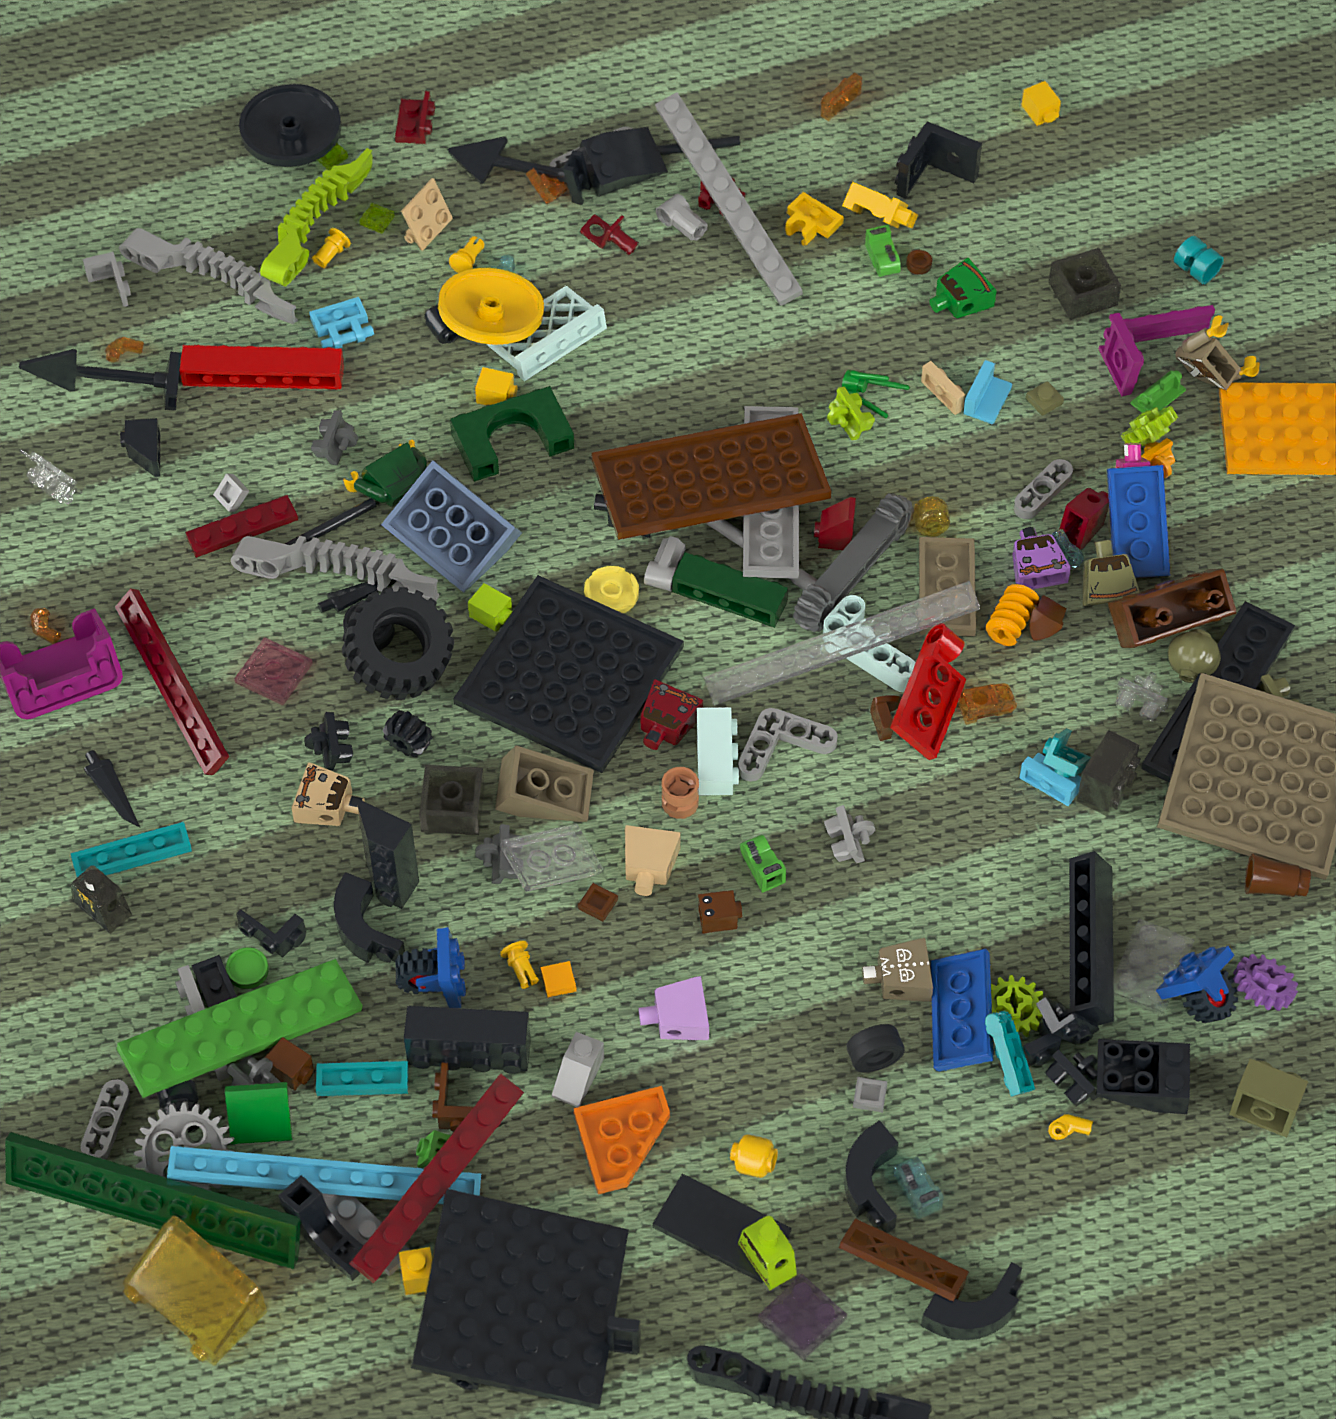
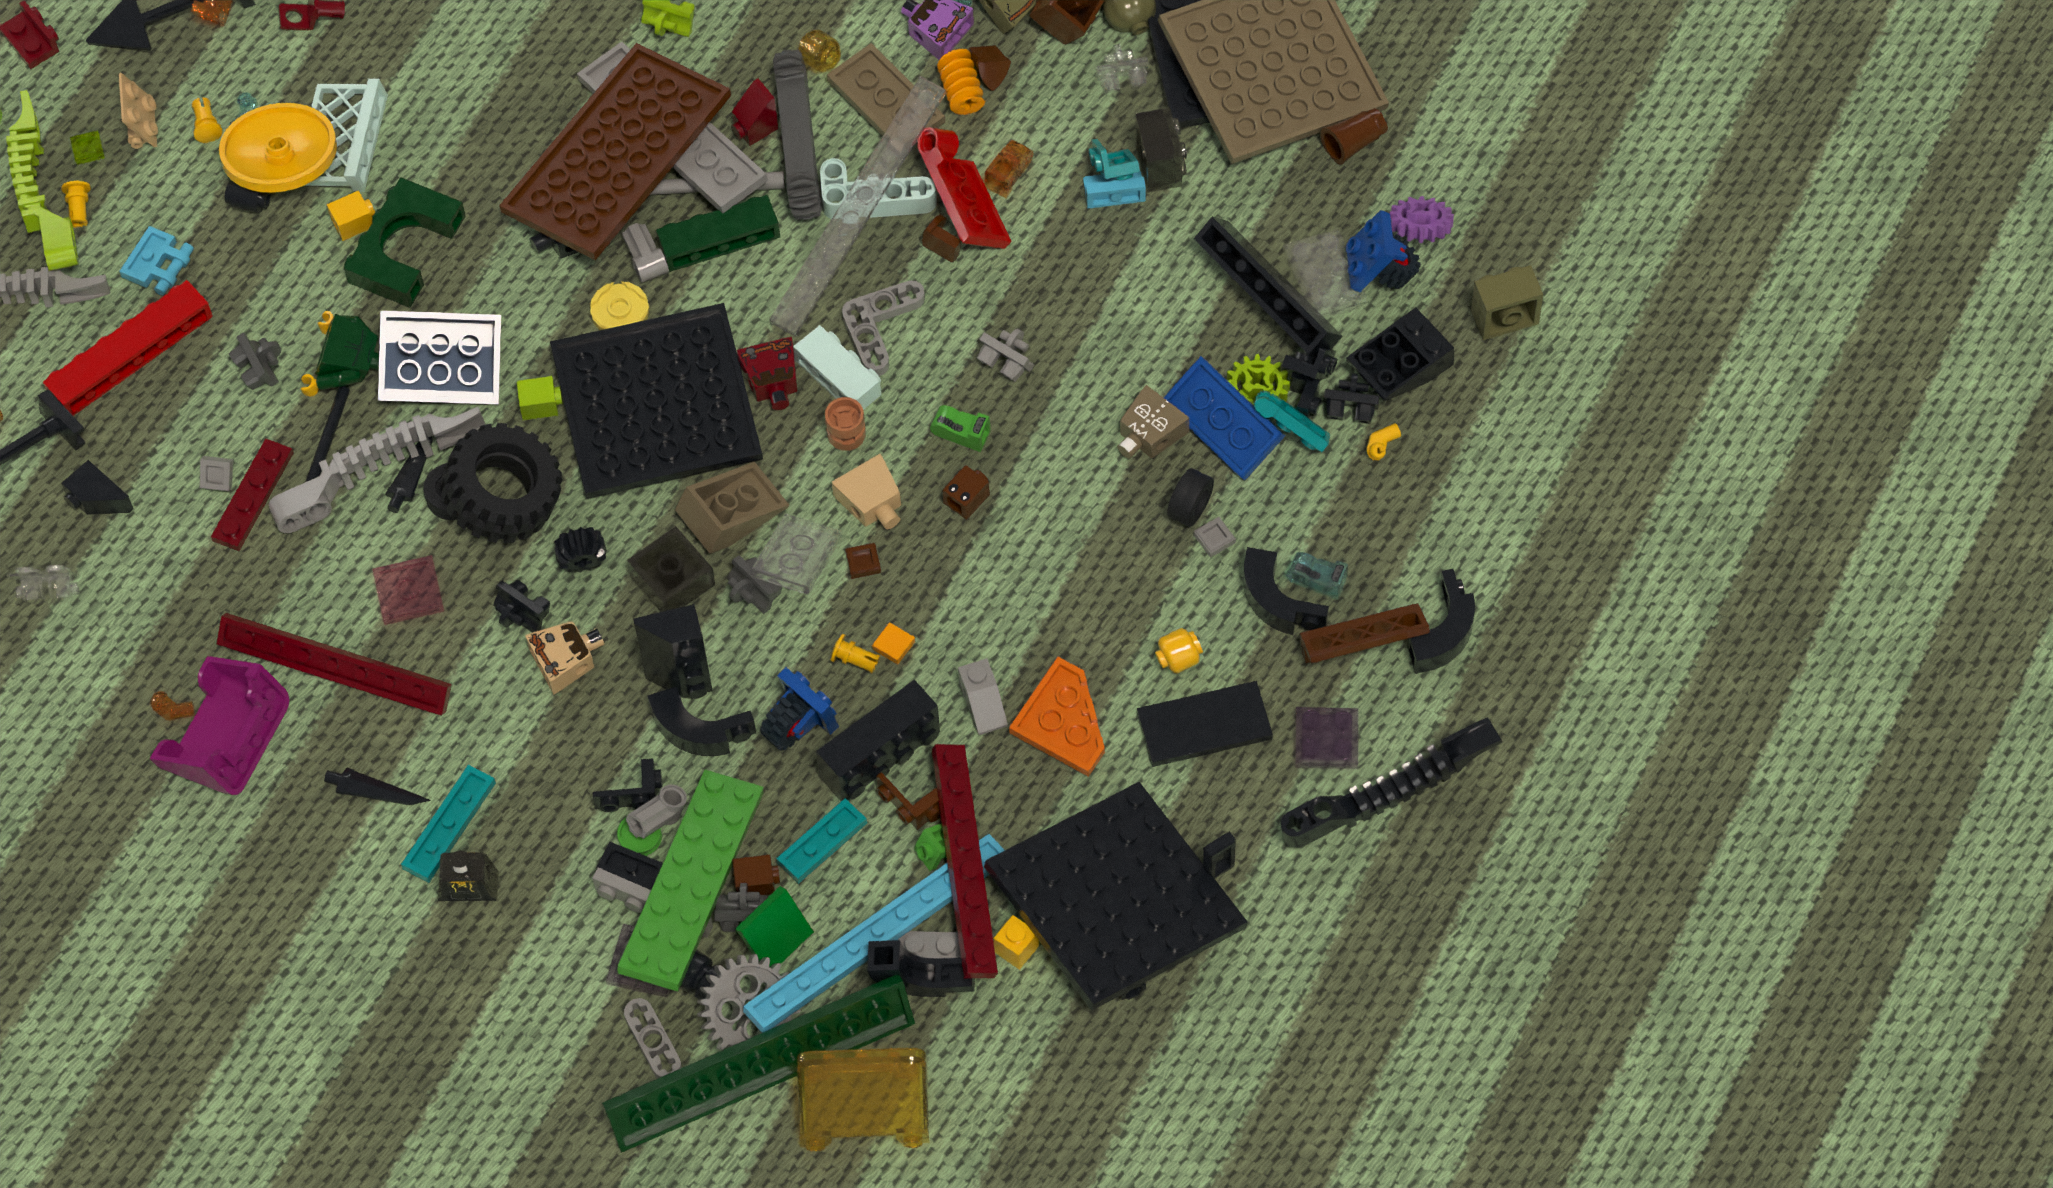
camera: 40 degrees left, 5 degrees up
(266, 960) = (657, 812): none -> light grey piece
(678, 1011) = (1014, 590): lavender torso -> none
(766, 1247) = (1263, 707): lime torso -> none

